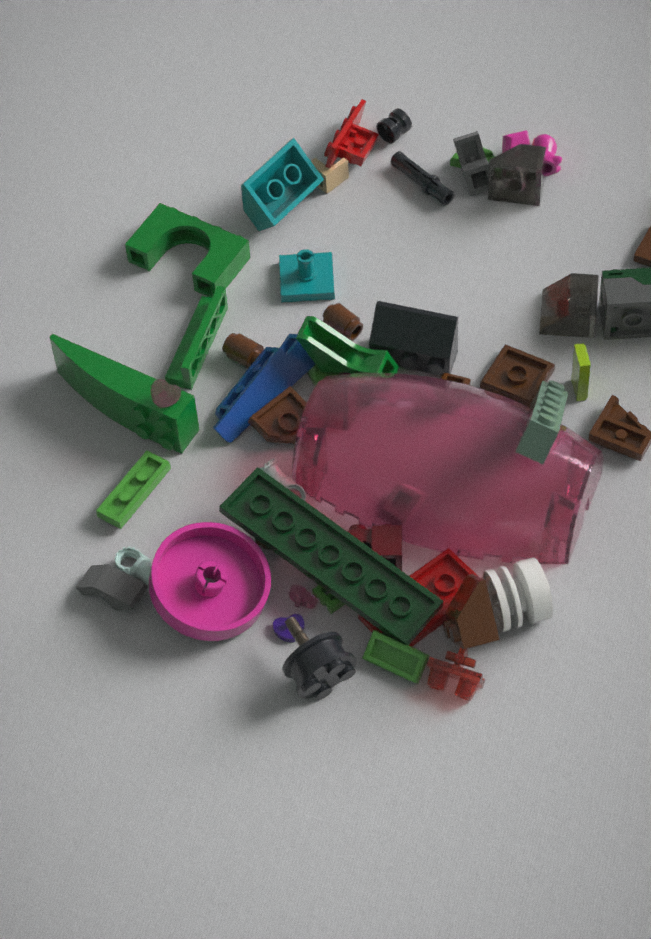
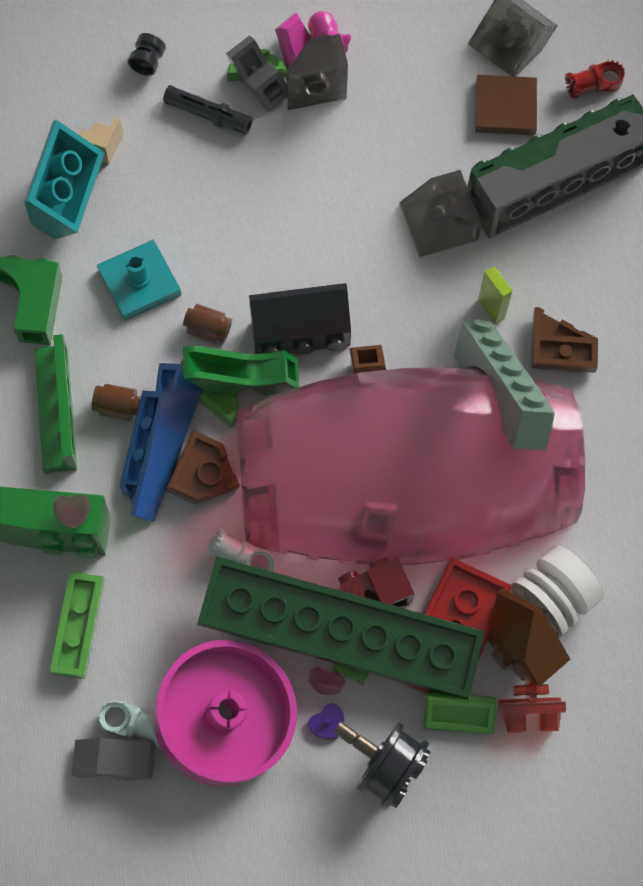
camera: 30 degrees left, 15 degrees up
(351, 140) = (114, 90): red bracket -> none
(517, 375) = (423, 318): reddish brown tile -> none

